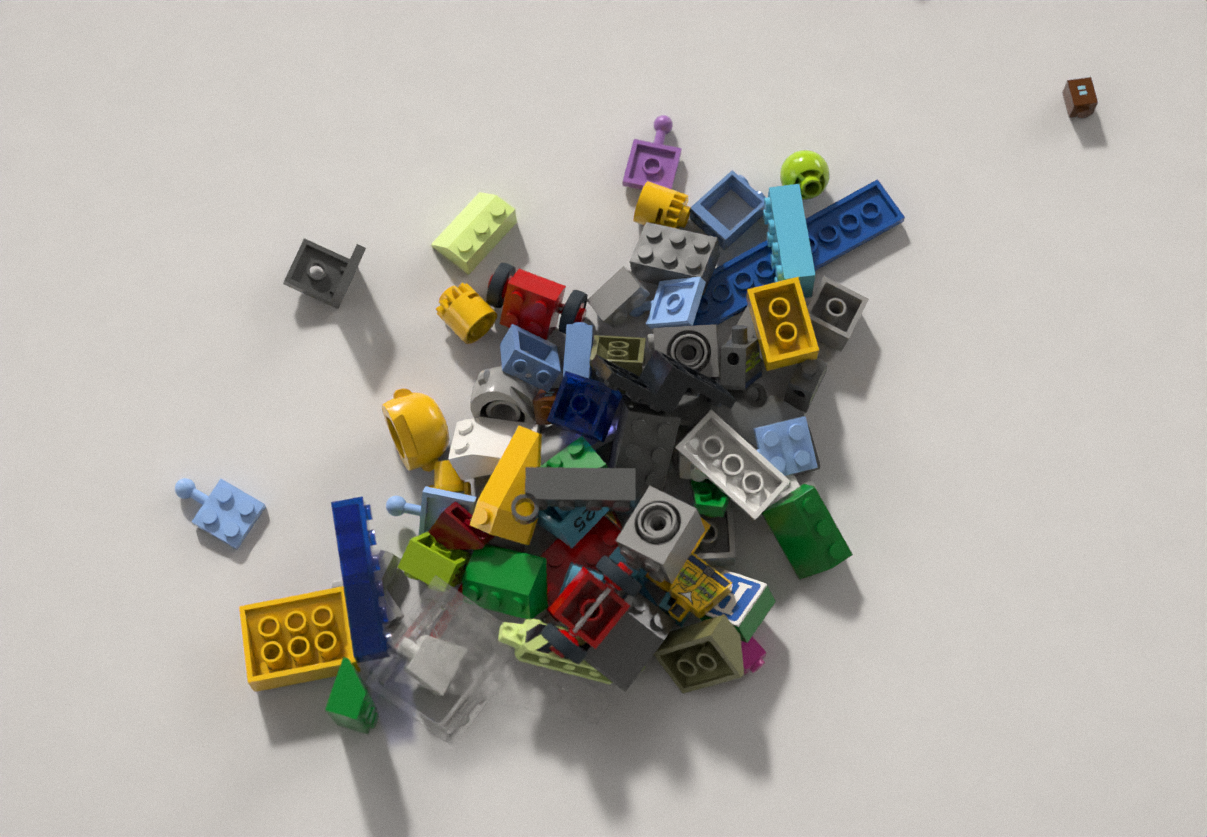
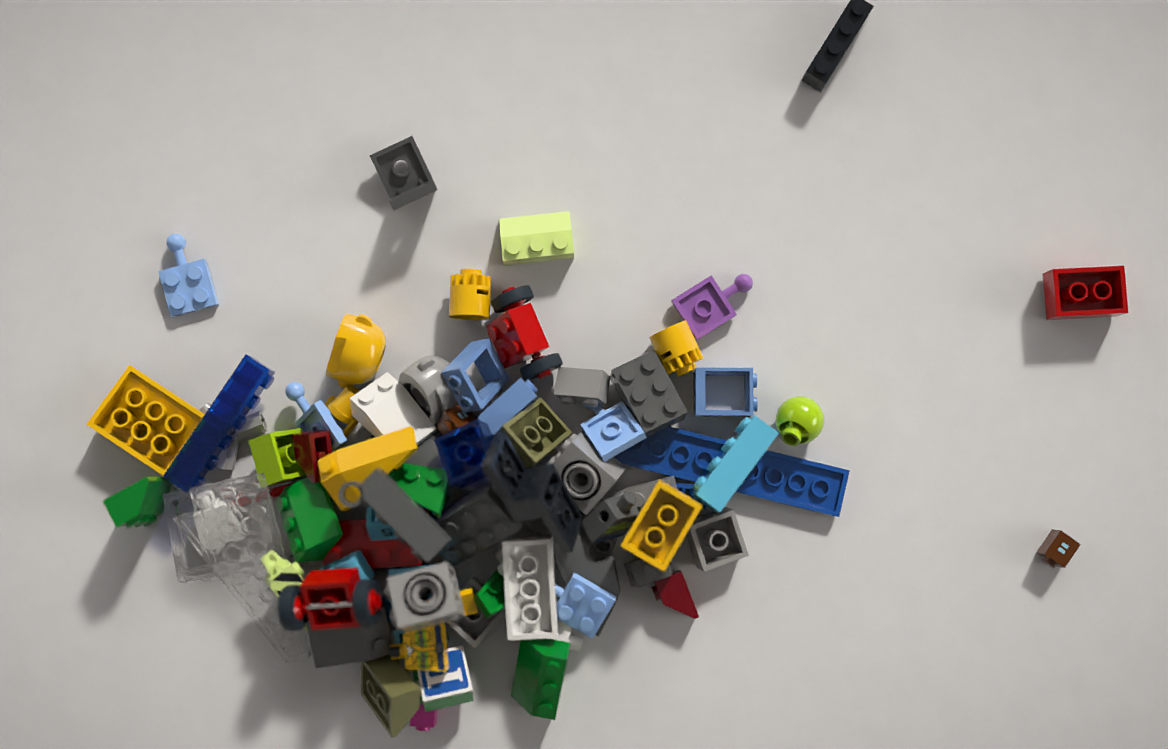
camera: 40 degrees right, 15 degrees up
(846, 382) = (675, 594): none -> dark red slope

